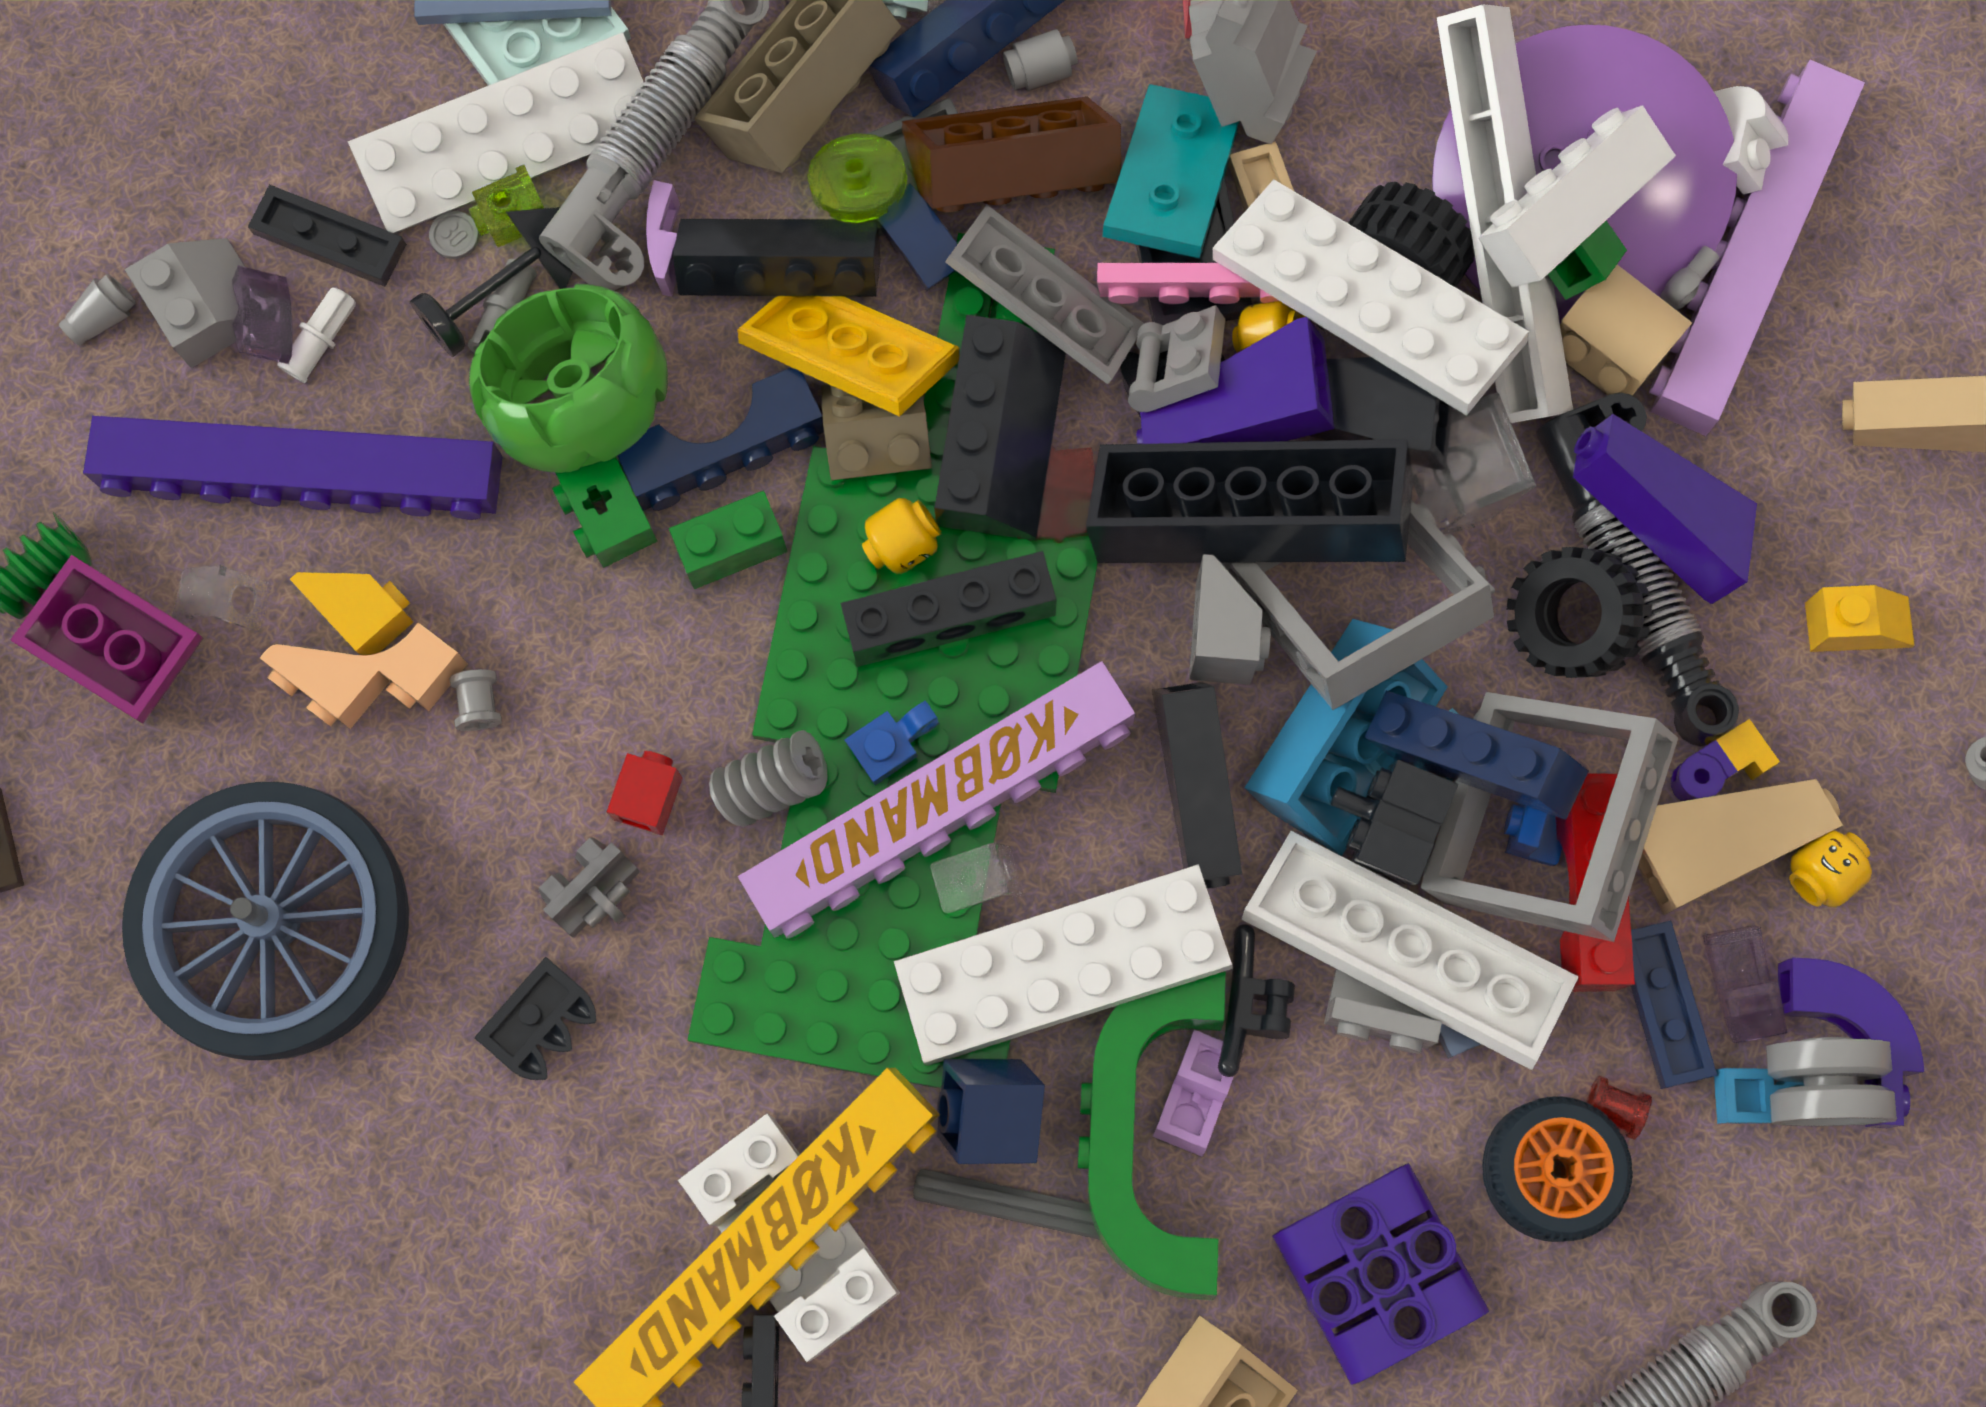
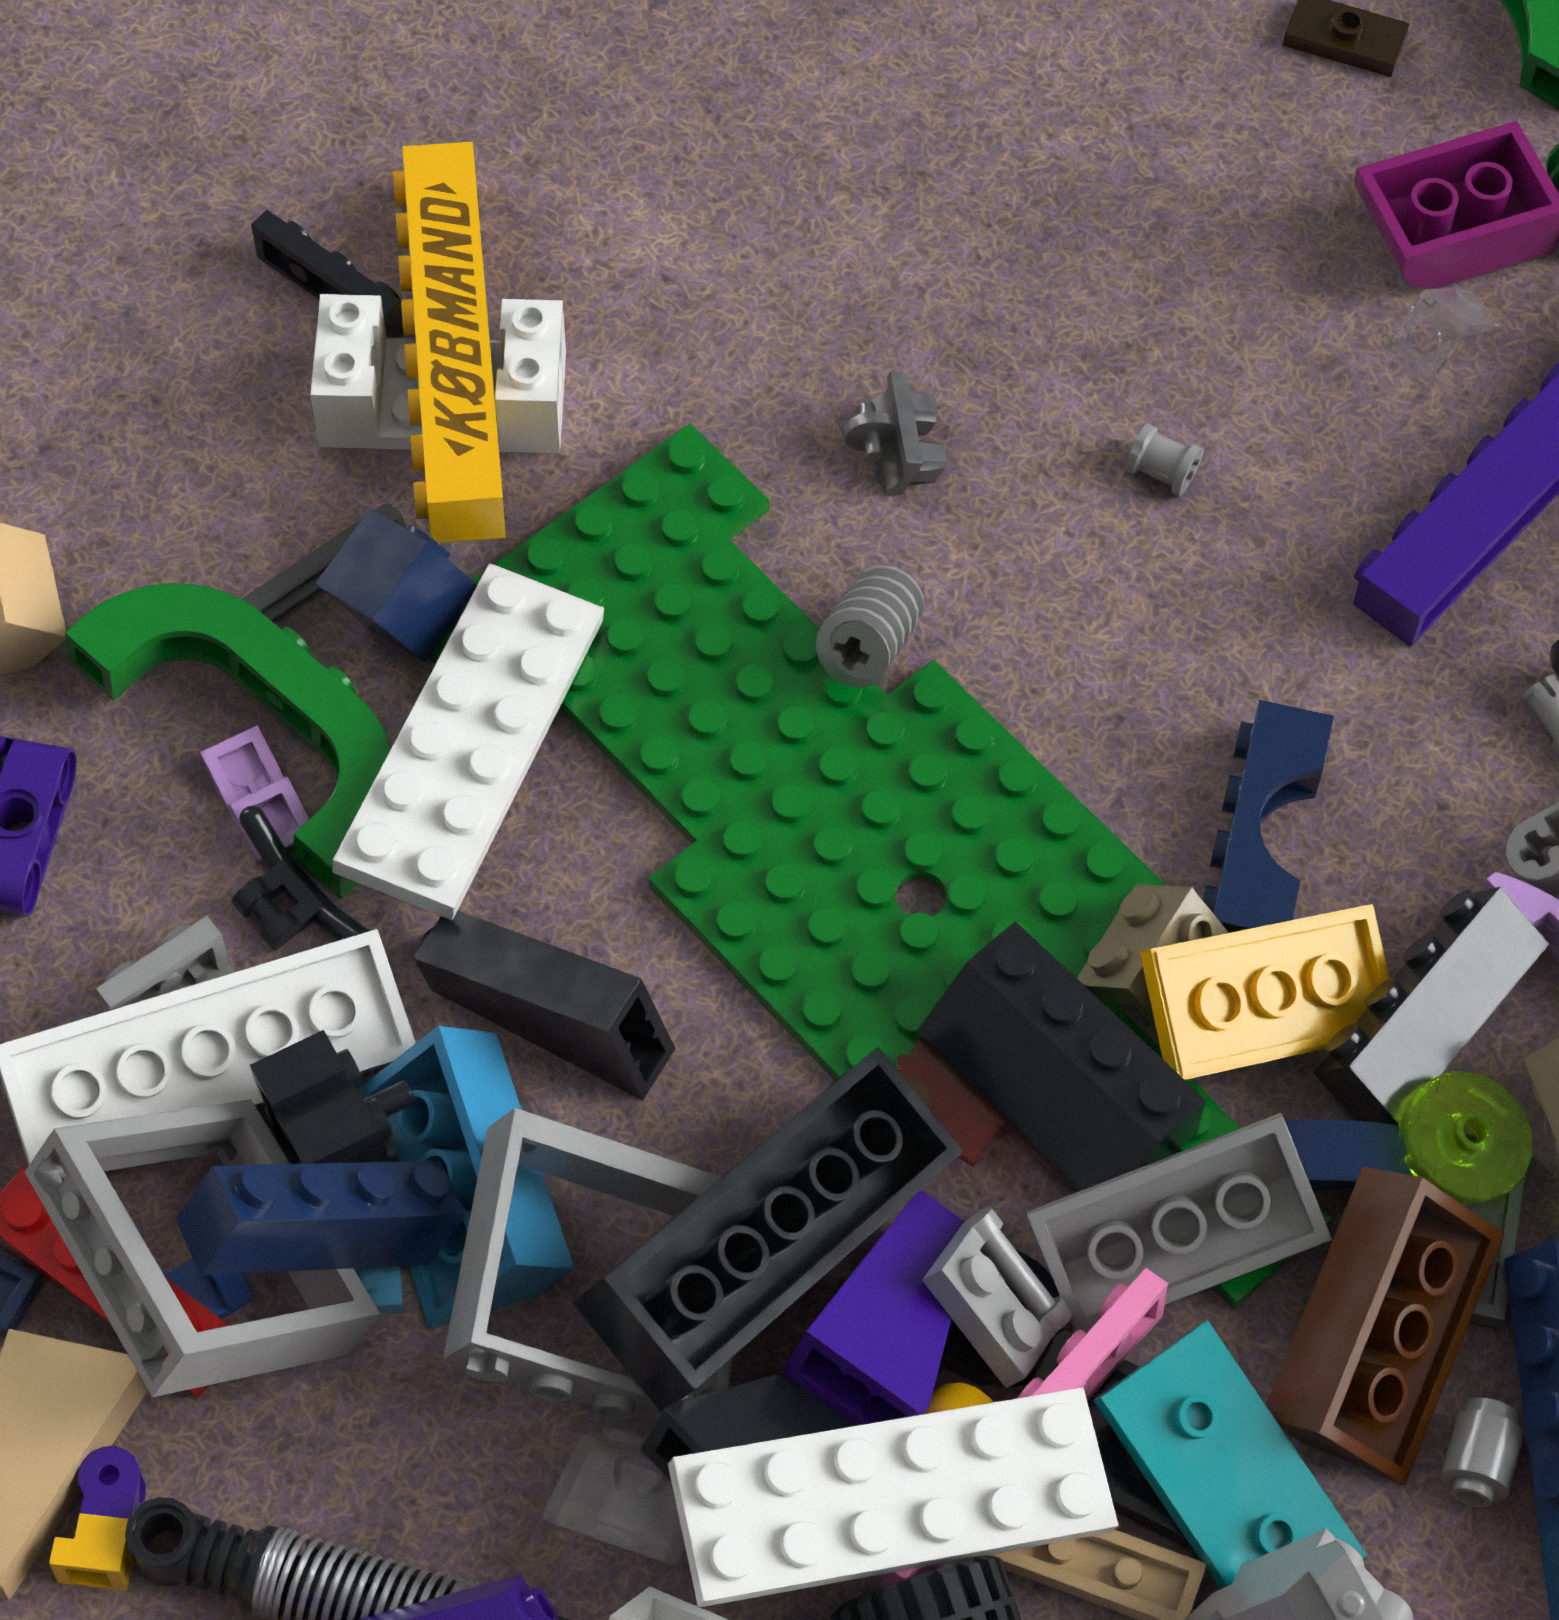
camera: 125 degrees right, 15 degrees down
(264, 920) = (1086, 177): wheel -> none
(348, 684) = (1268, 366): light nougat arch -> none
(357, 607) = (1339, 417): yellow slope -> none
(535, 1019) = (816, 321): black plate -> none
(566, 337) = (1402, 746): bright green wheel -> none
(614, 532) = (1253, 661): green brick -> none
(645, 792) = (951, 532): red brick -> none
(728, 539) = (1149, 761): green brick -> none
(885, 745) = (818, 750): blue plate -> none
(901, 535) = (1022, 889): yellow head -> none
(938, 800) = (719, 754): lavender brick -> none
(949, 608) = (903, 884): black brick -> none
(976, 877) = (619, 740): clear bracket -> none
(1226, 628) = (671, 1113): light grey slope -> none
(1538, 605) = (377, 1480): black tyre -> none

